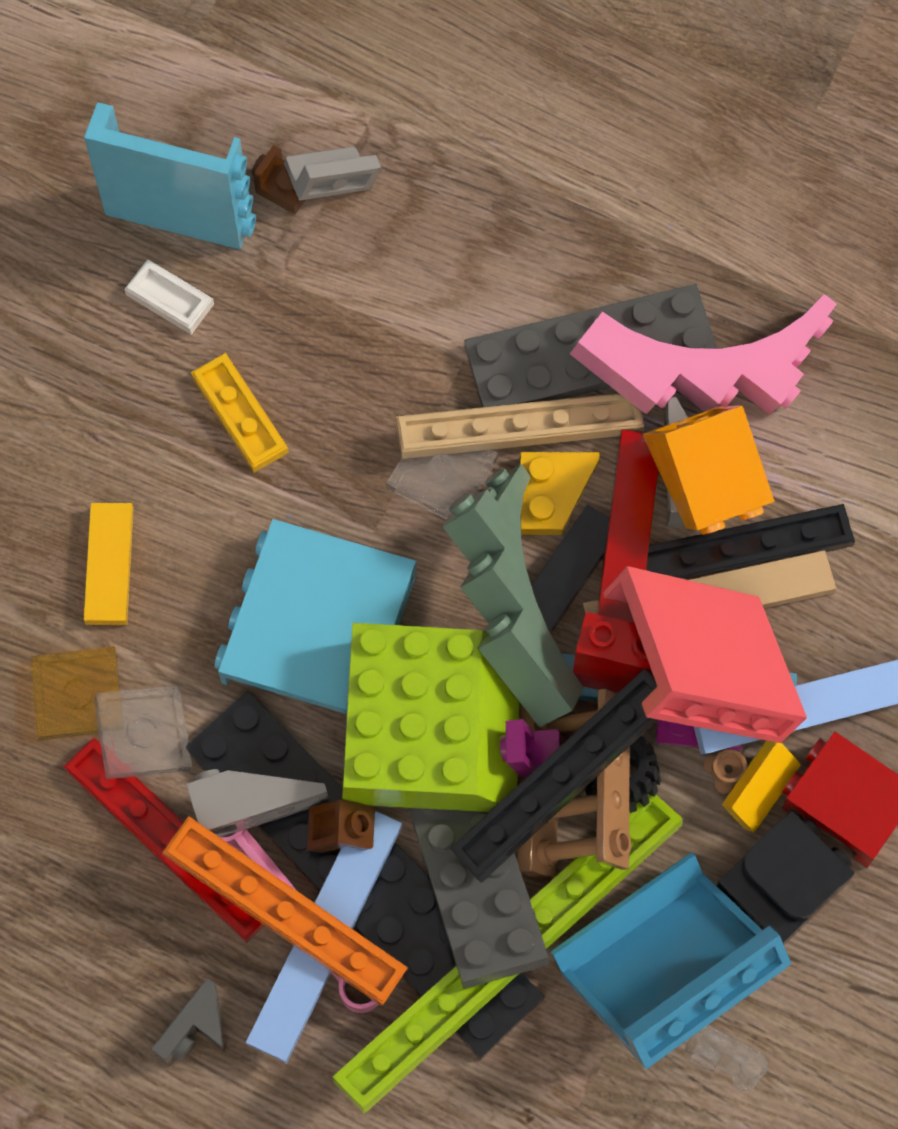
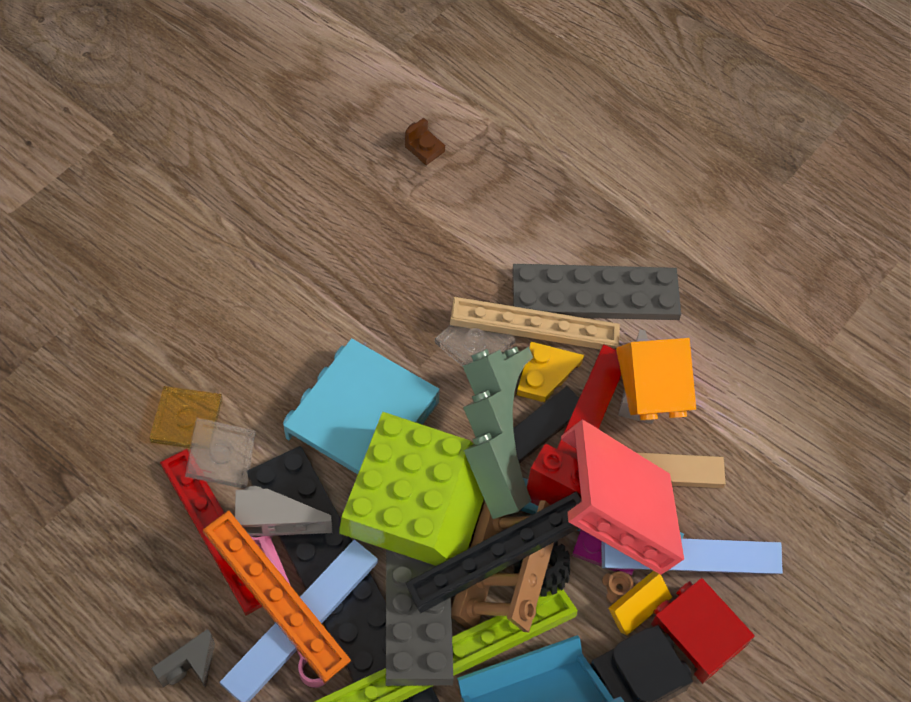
camera: 10 degrees right, 10 degrees down
(108, 564) = (235, 342): yellow tile -> none
(169, 296) = (329, 192): white tile -> none
(170, 184) = (350, 117): medium azure panel -> none
(239, 412) = (352, 272): yellow tile -> none
(331, 172) = (456, 144): light grey panel -> none
(340, 826) = (334, 547): reddish brown bracket -> none
(527, 748) = (476, 526): magenta bracket -> none
(653, 371) = (633, 310): bright pink arch -> none
(752, 544) = (679, 440): black tile -> none

